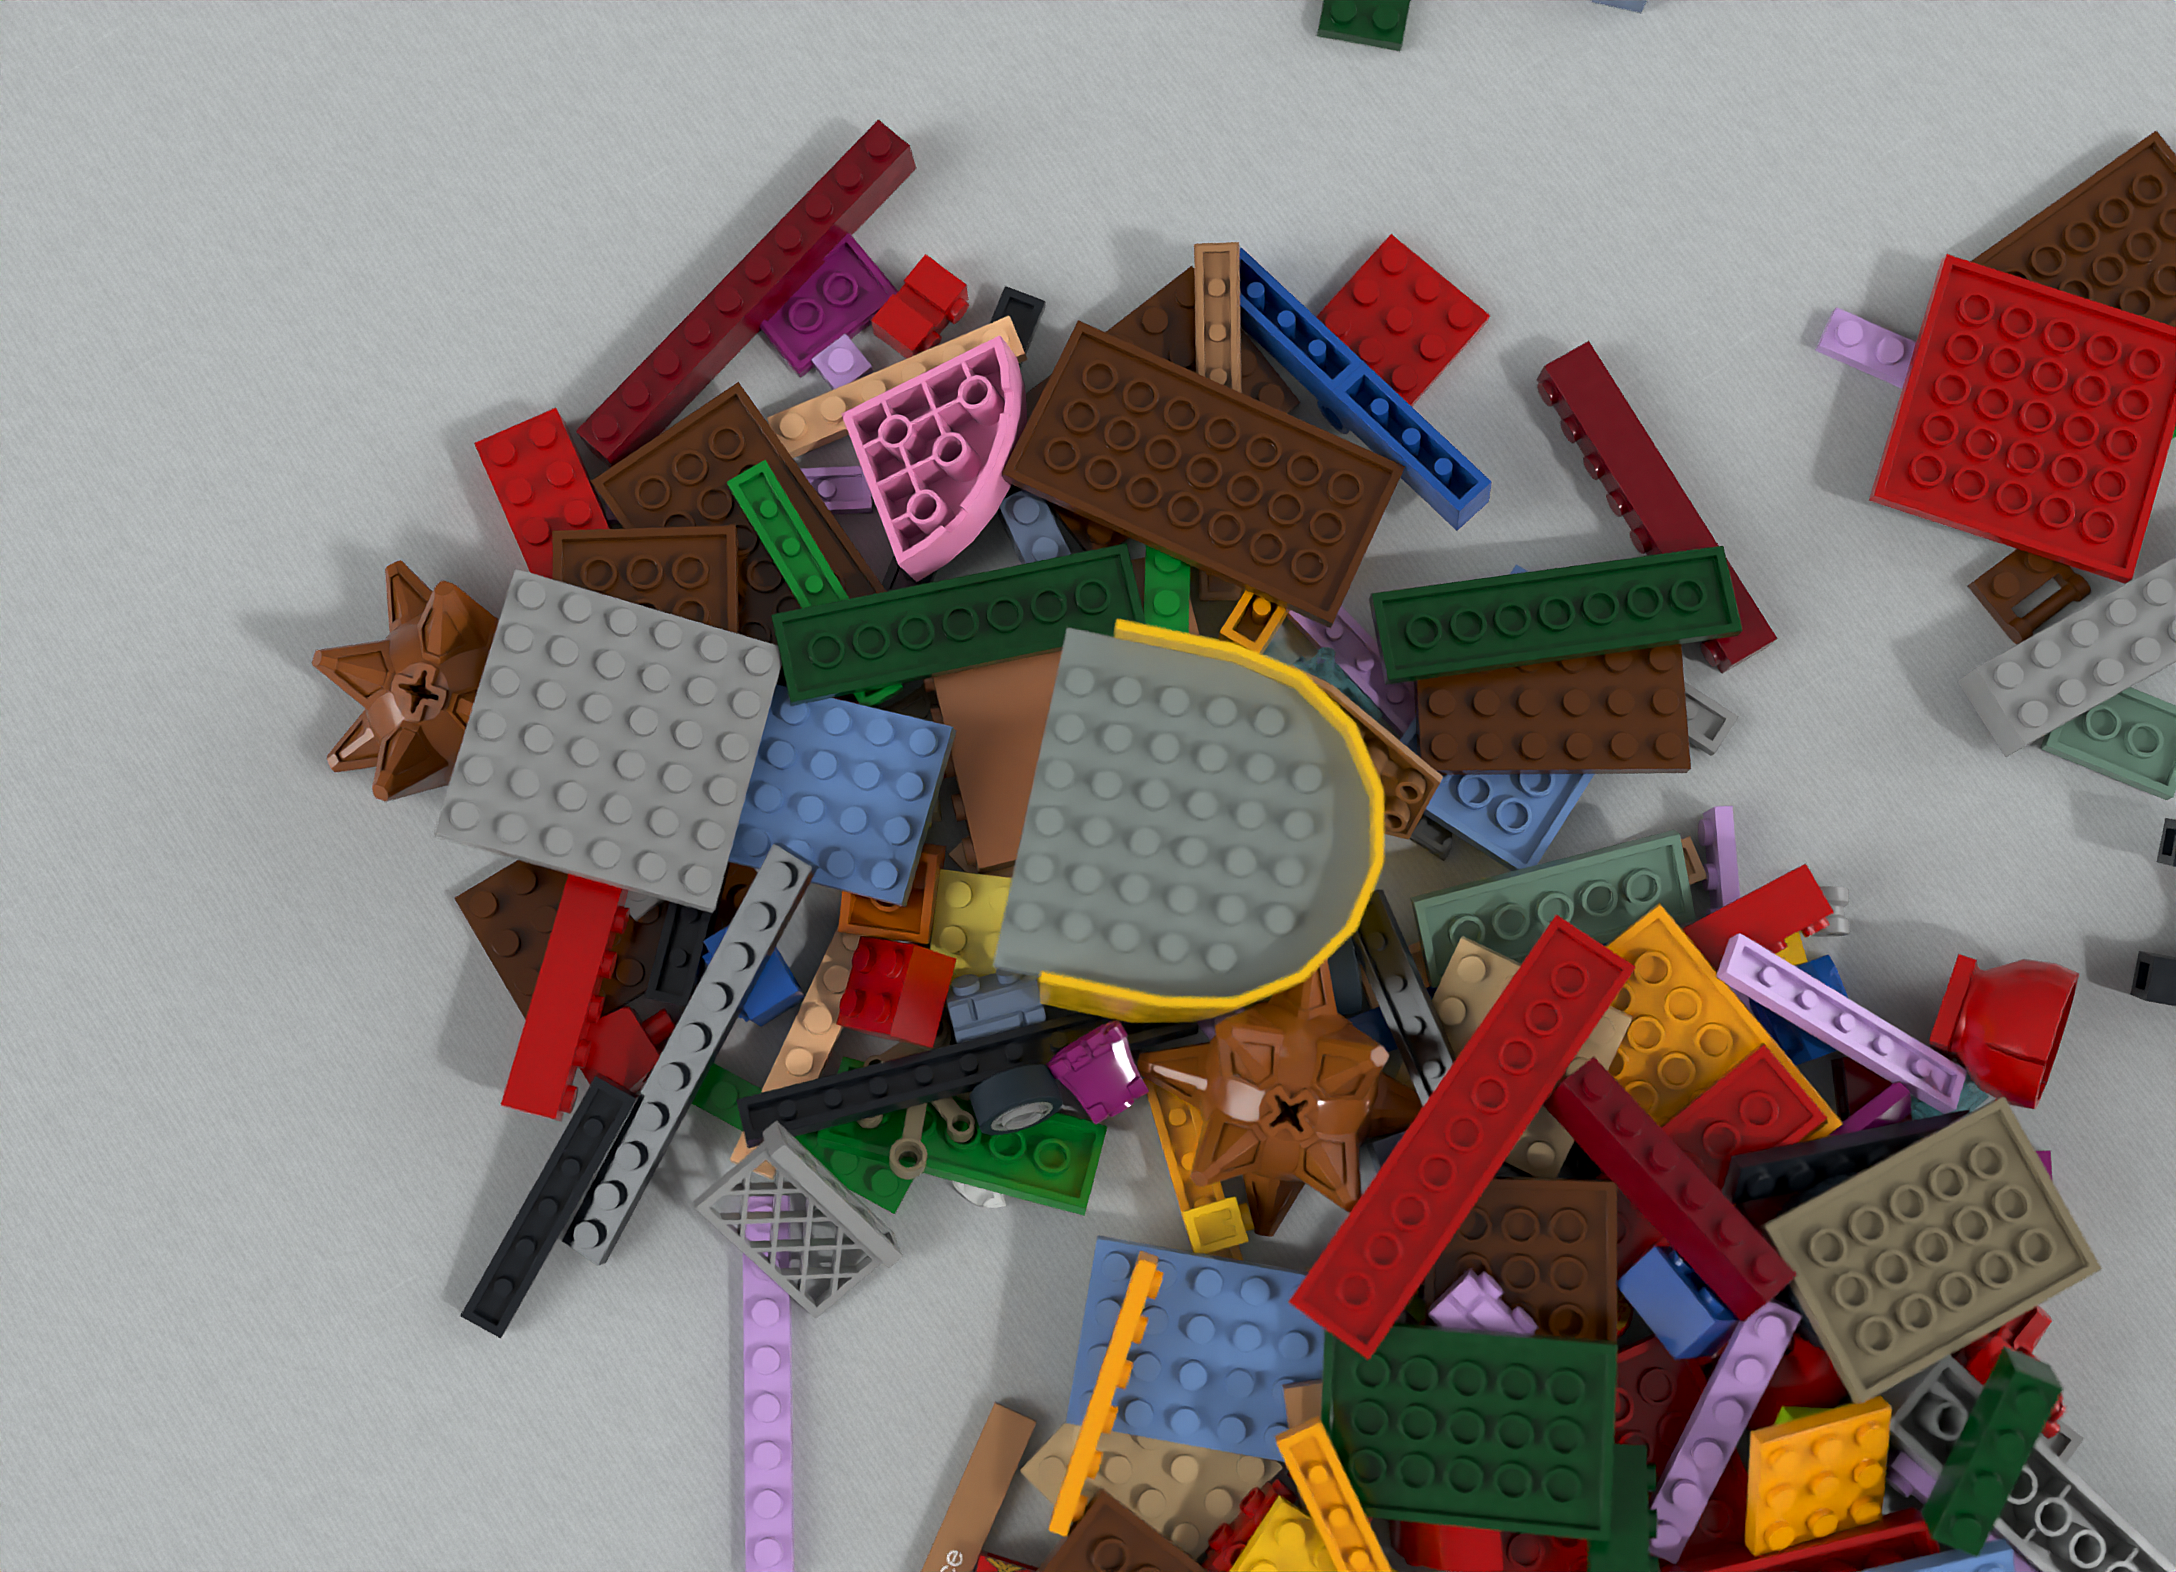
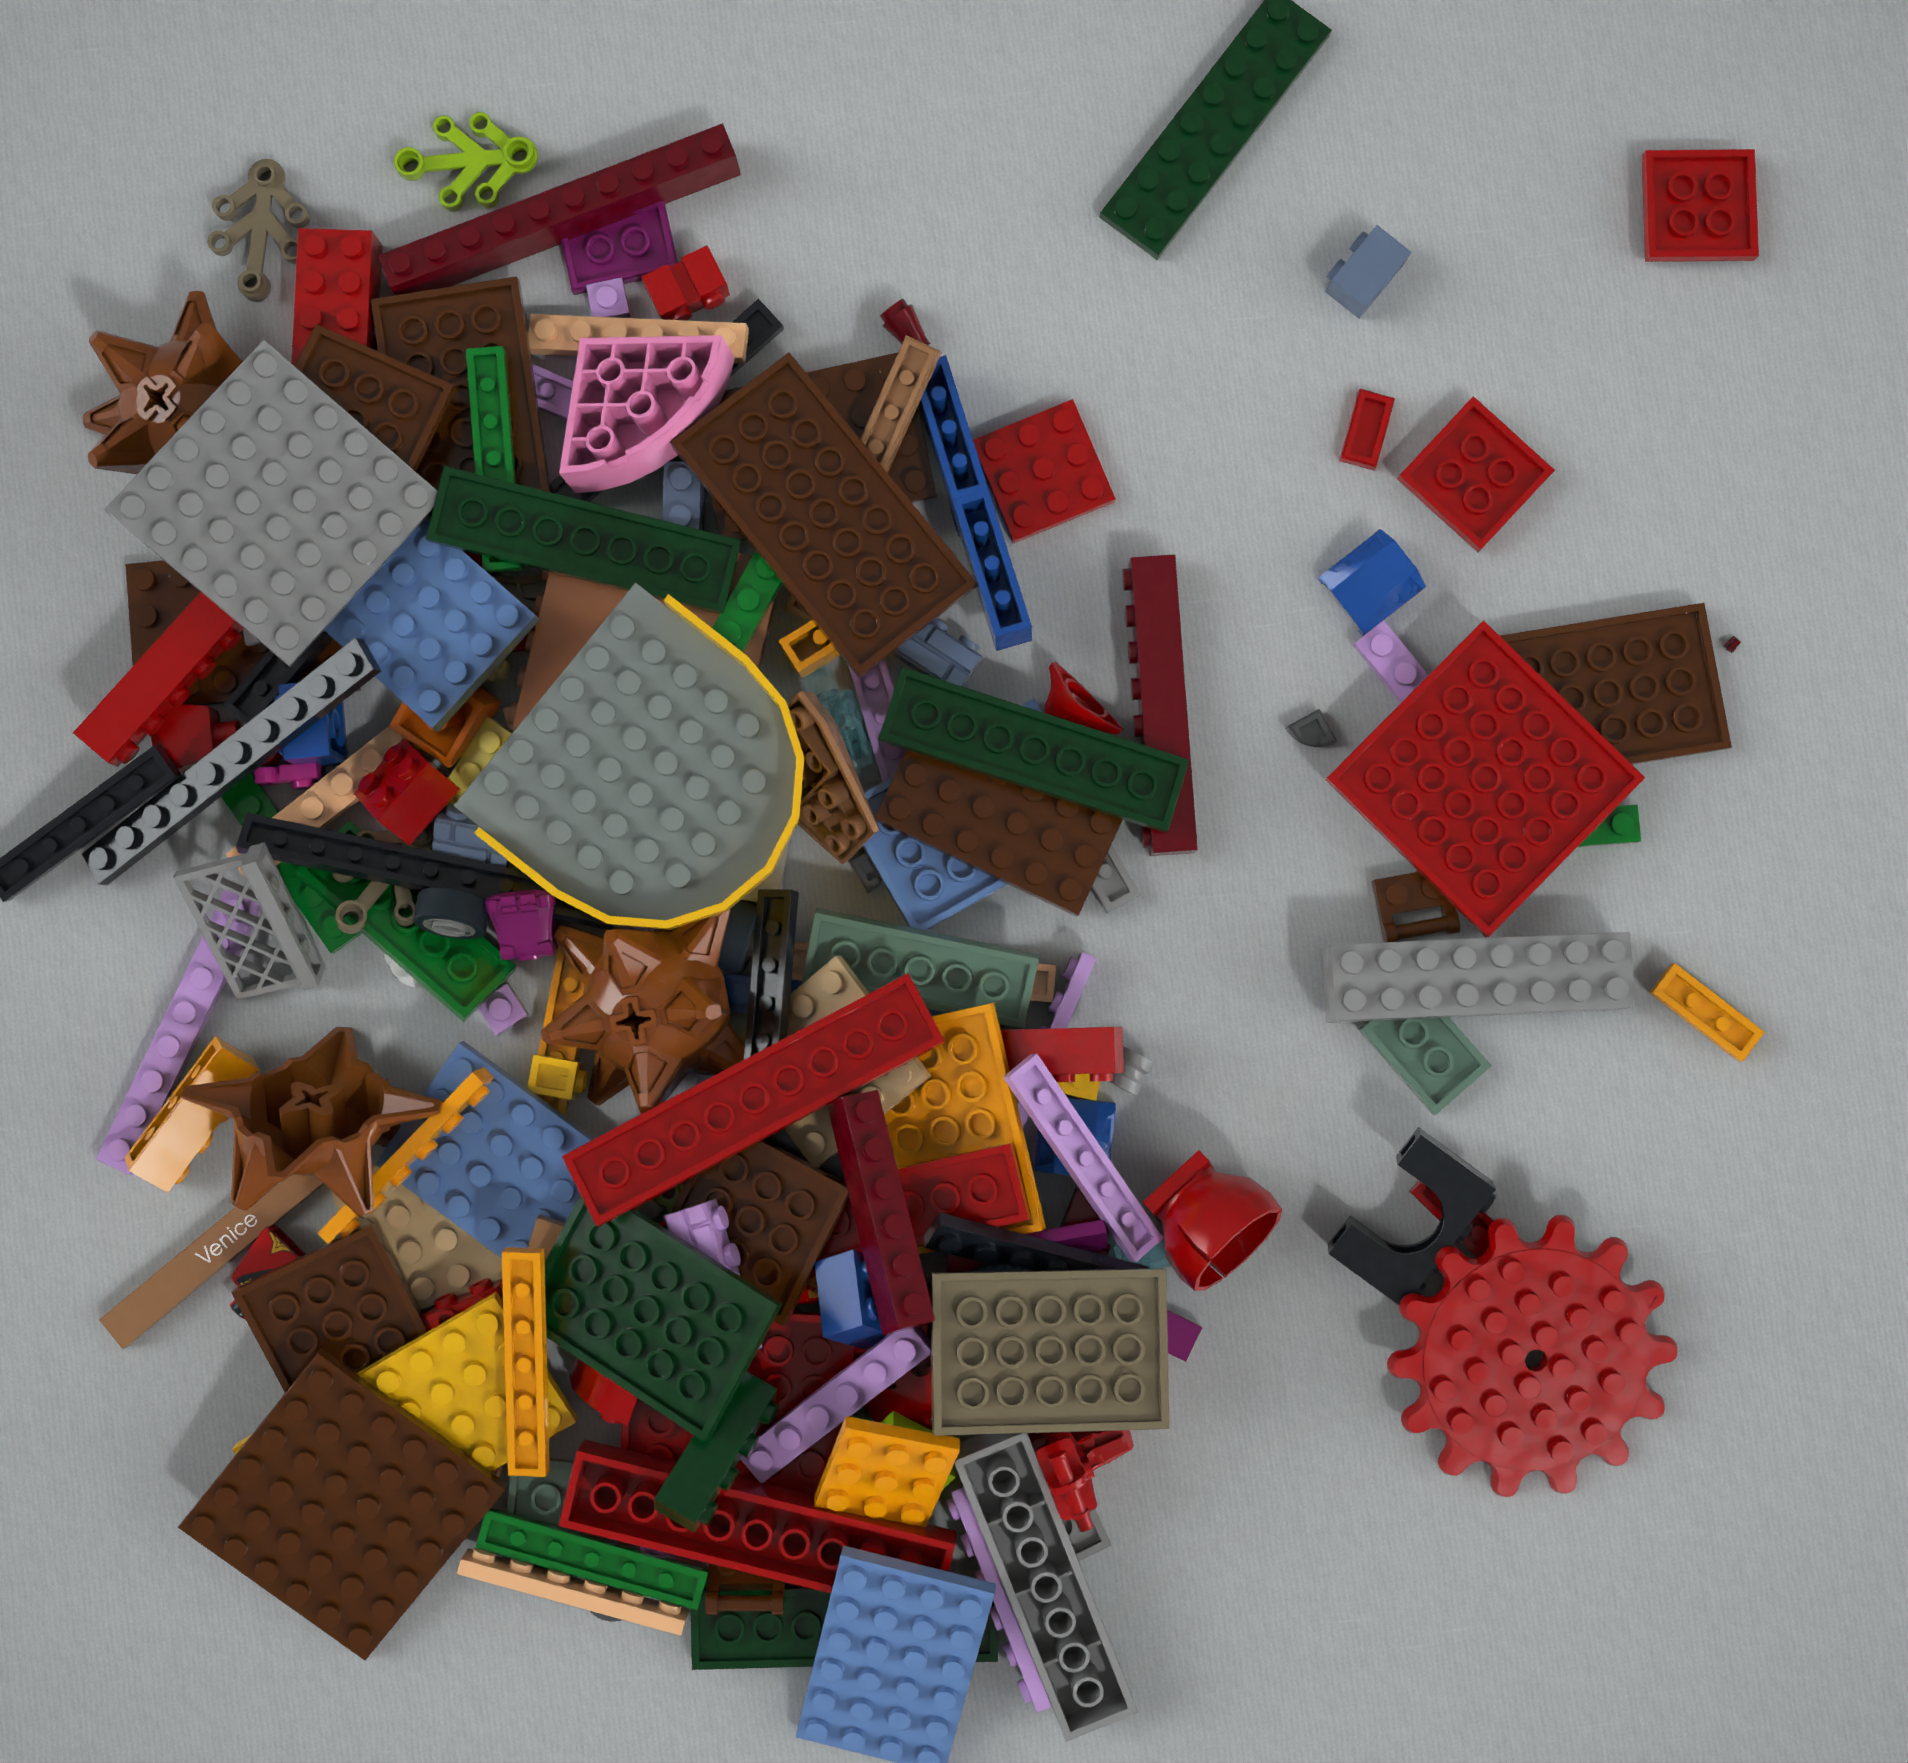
camera: 25 degrees right, 5 degrees up
(421, 460) = (258, 223): none -> dark tan plant
(621, 286) = (472, 160): none -> lime plant
(764, 1035) = (299, 775): none -> dark pink plate
(832, 1471) = (183, 1127): none -> light orange brick
(984, 1402) = (312, 1120): none -> dark orange piece
(1115, 1182) = (503, 1009): none -> lavender plate
(1171, 240) = (902, 321): none -> dark red cone
(1396, 564) = (940, 654): none -> sand blue brick
(1559, 548) = (1076, 704): none -> red hat
(1711, 121) = (1367, 429): none -> red tile
(1804, 270) = (1373, 581): none -> blue slope
(1823, 458) = (1312, 730): none -> dark grey tile
(1850, 112) = (1475, 474): none -> red plate
(1991, 1451) = (1014, 1517): dark green brick -> none

